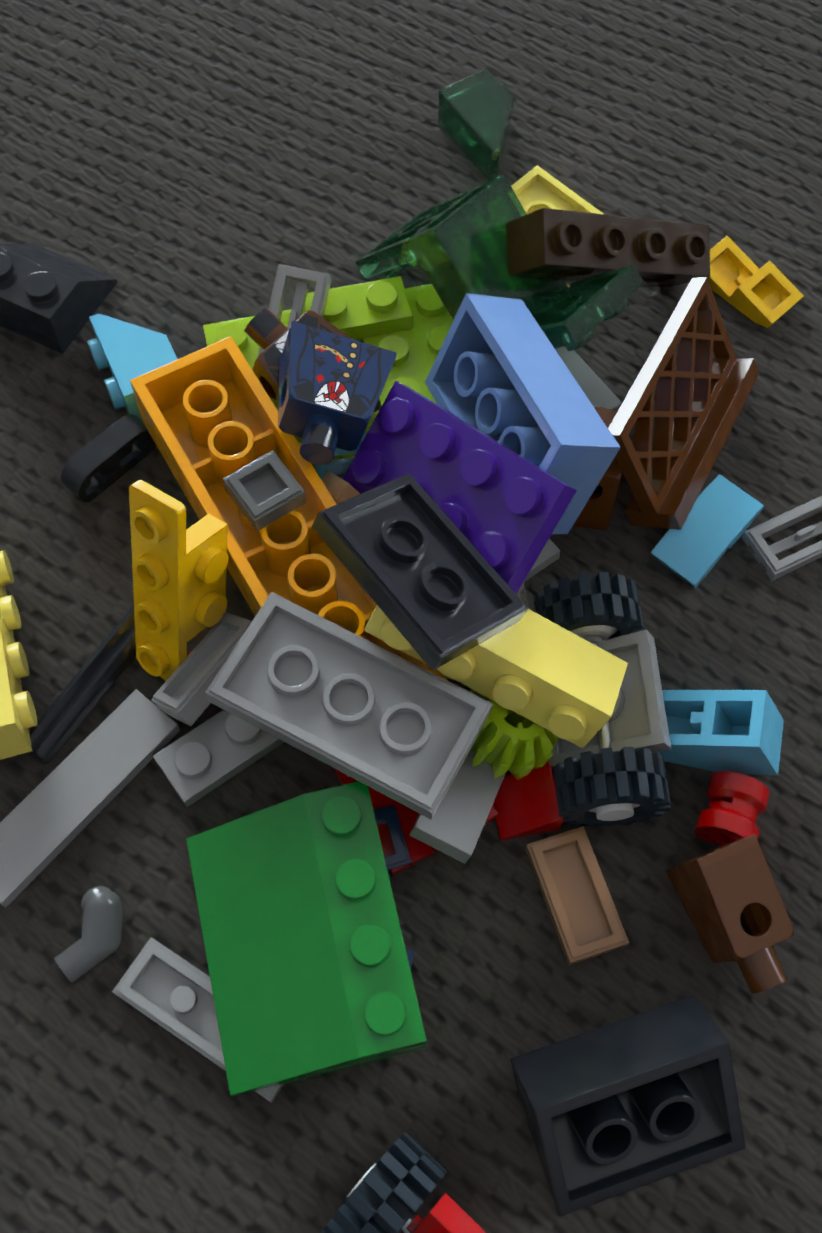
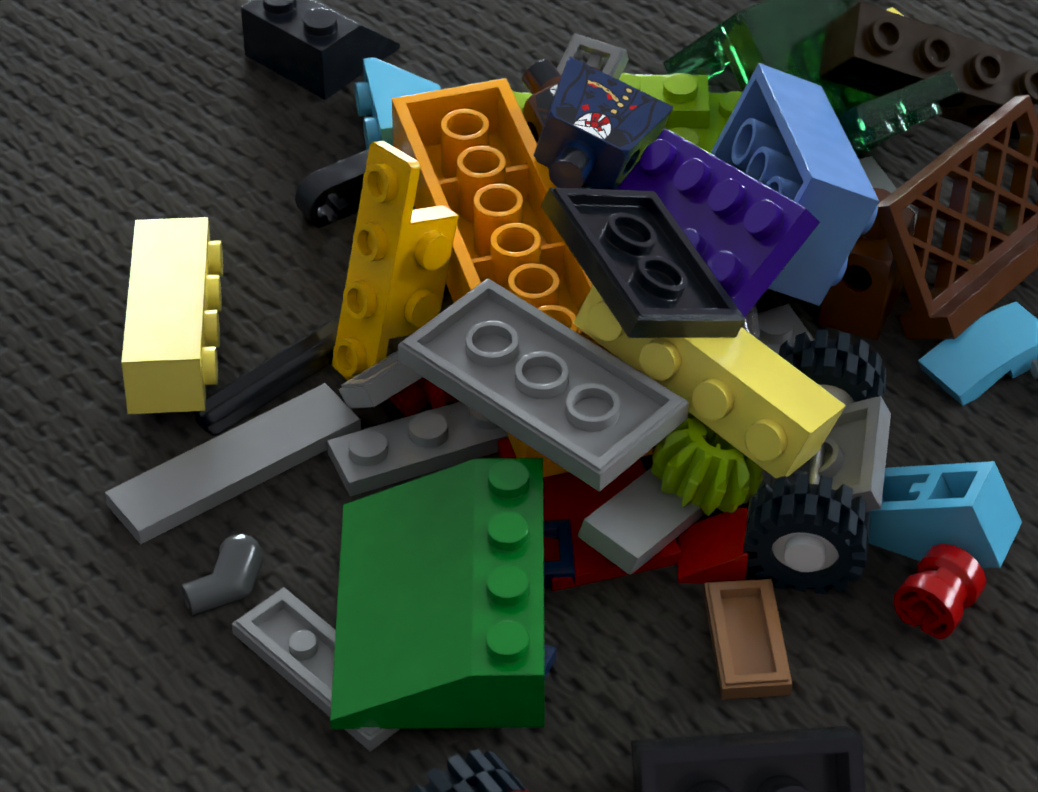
camera: 15 degrees right, 20 degrees down
(264, 490) = (504, 202): dark grey tile -> none
(729, 885) = (905, 616): reddish brown torso -> none

